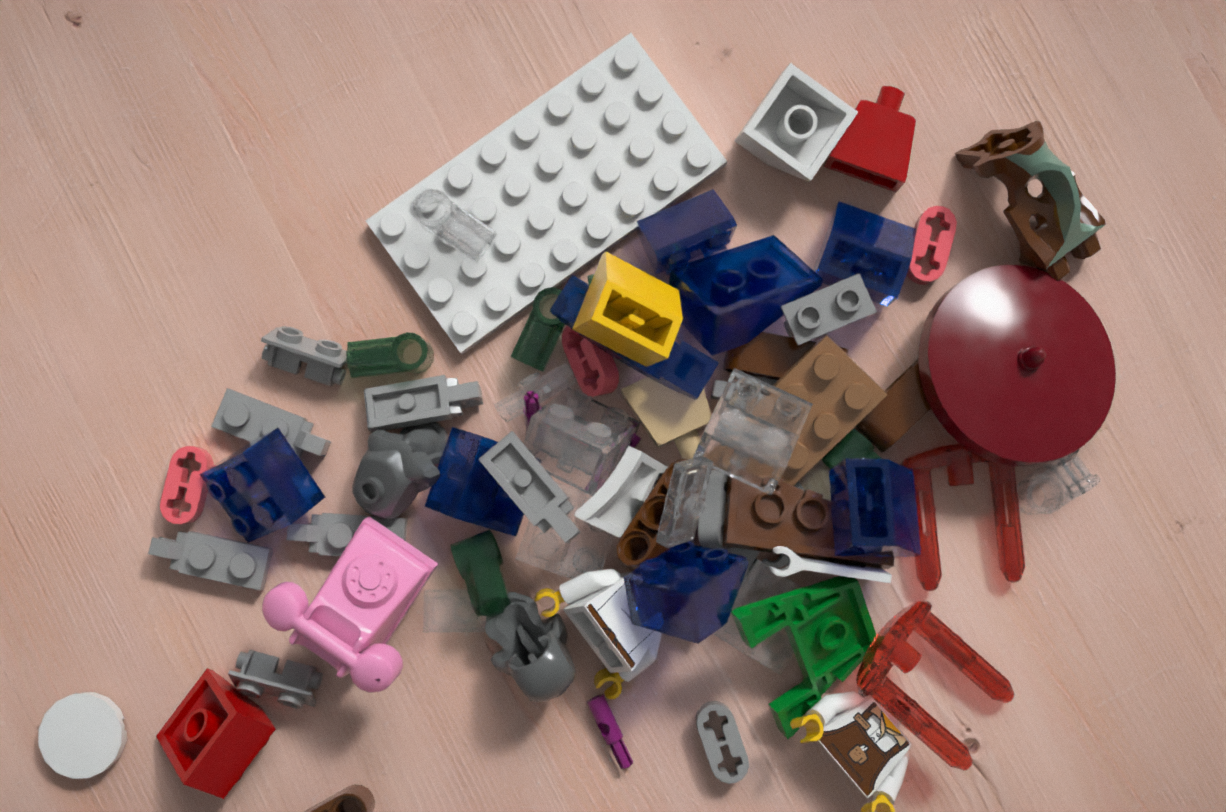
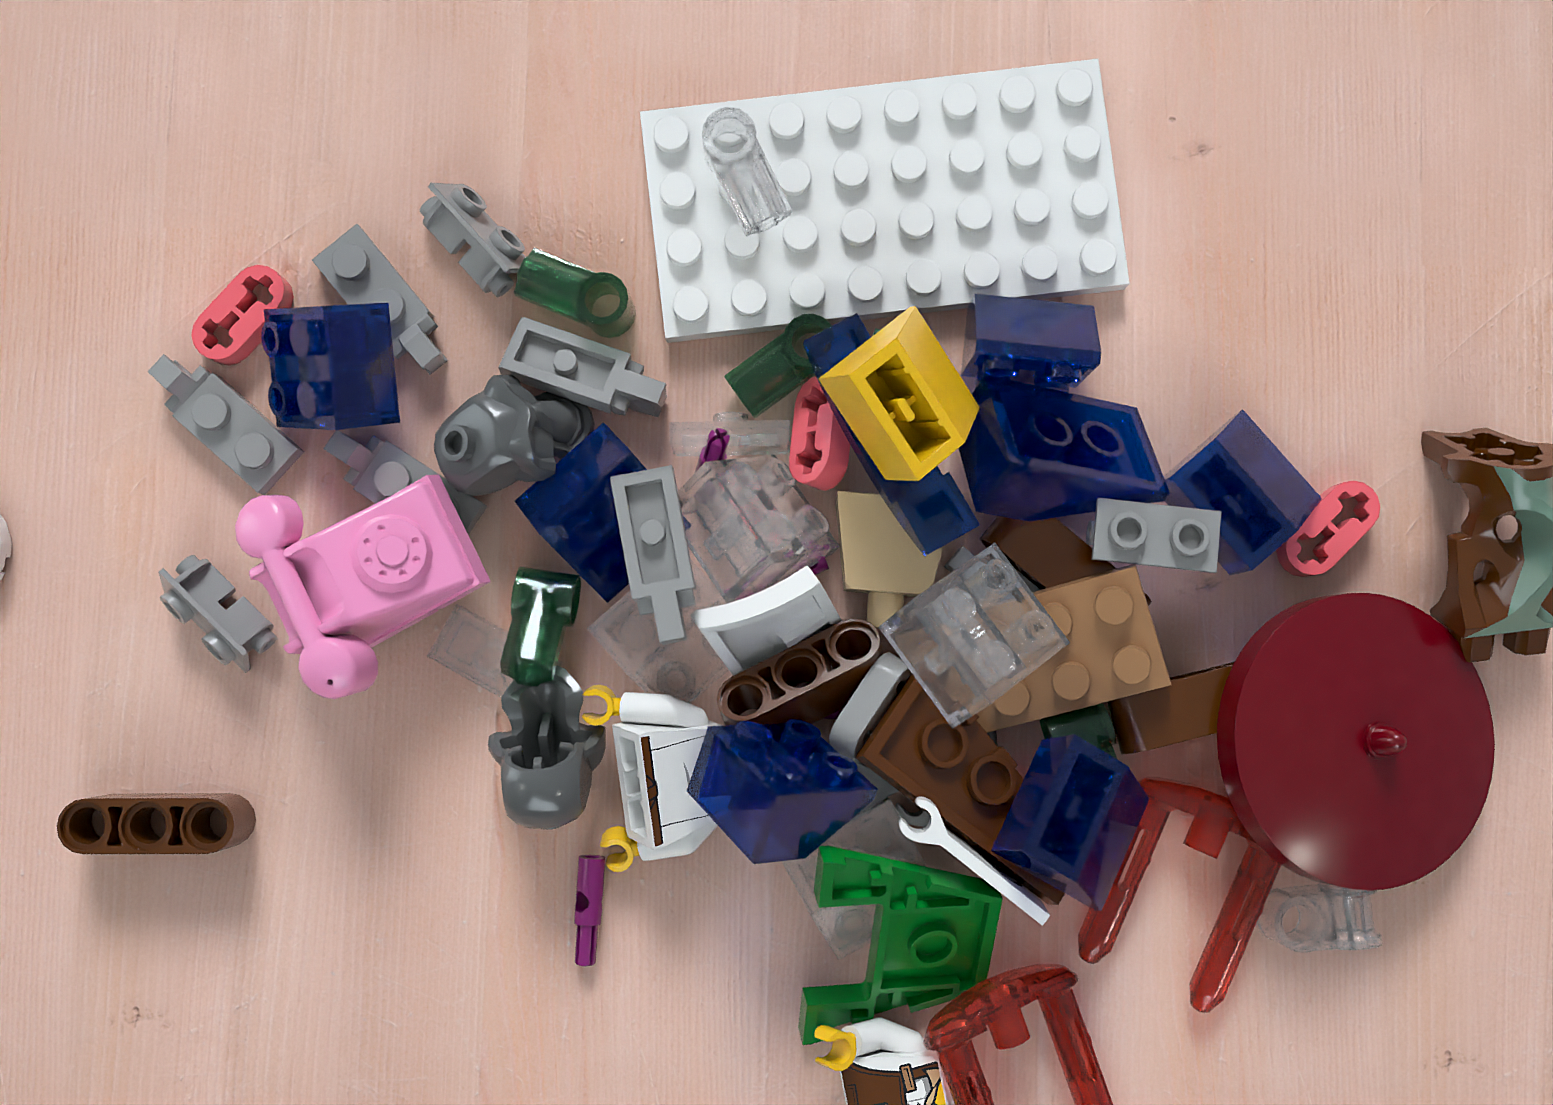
camera: 30 degrees right, 0 degrees up
(214, 735) = (102, 639): red slope -> none
(684, 501) = (838, 674): clear plate -> none
(731, 738) = (704, 999): light grey beam -> none
(796, 124) = (1243, 283): white slope -> none
(876, 142) = (1331, 361): red torso -> none

